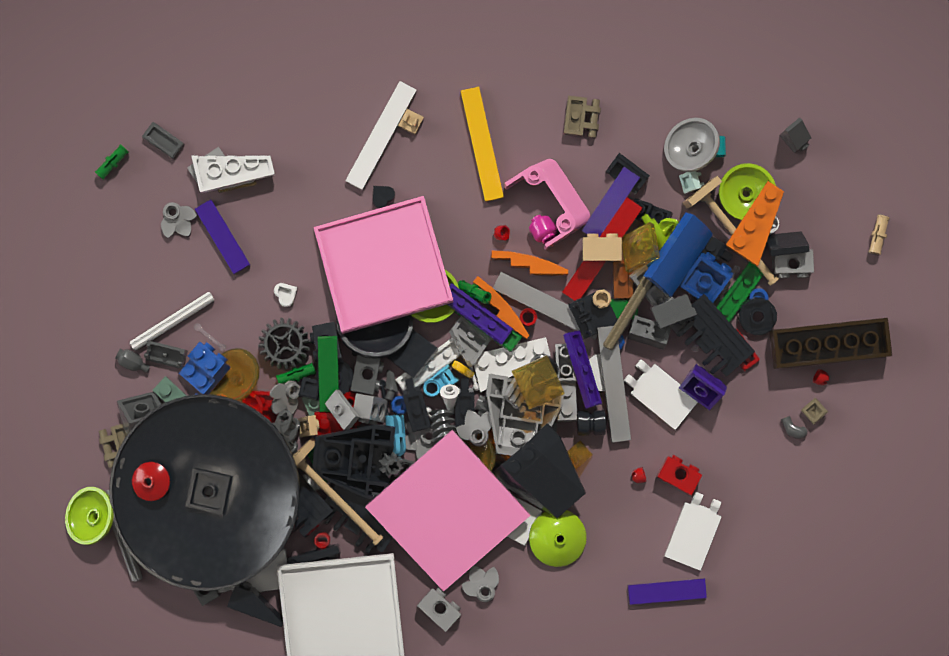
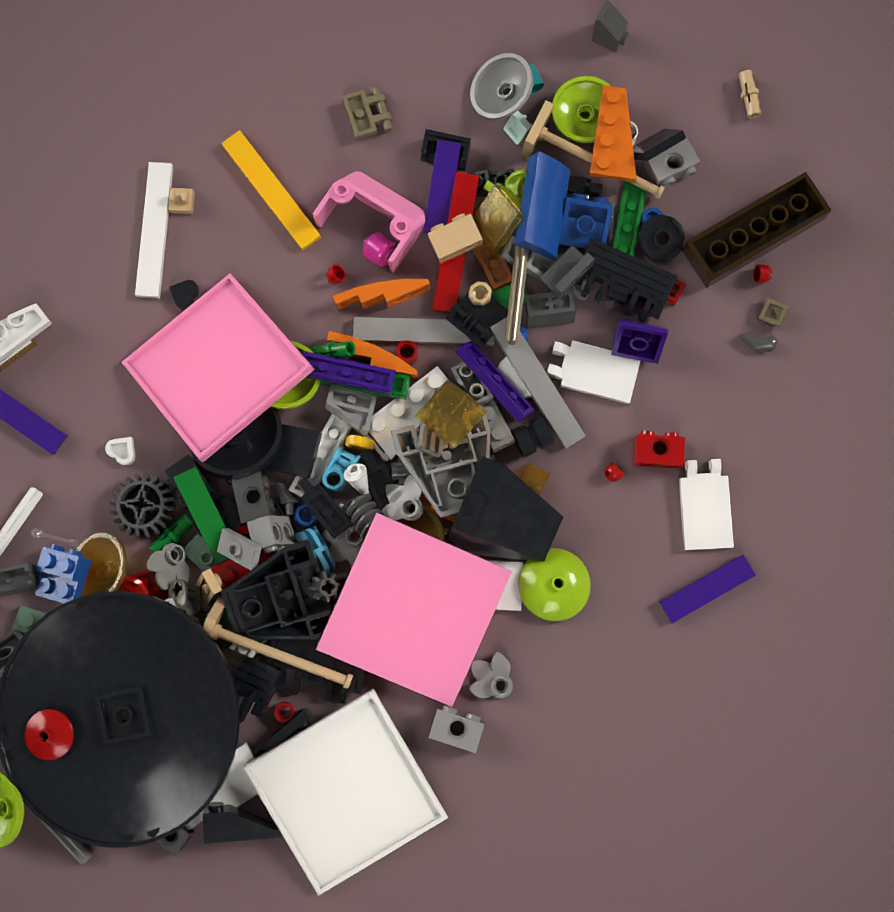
camera: 20 degrees left, 5 degrees down
(309, 389) = (193, 544): black tile -> none

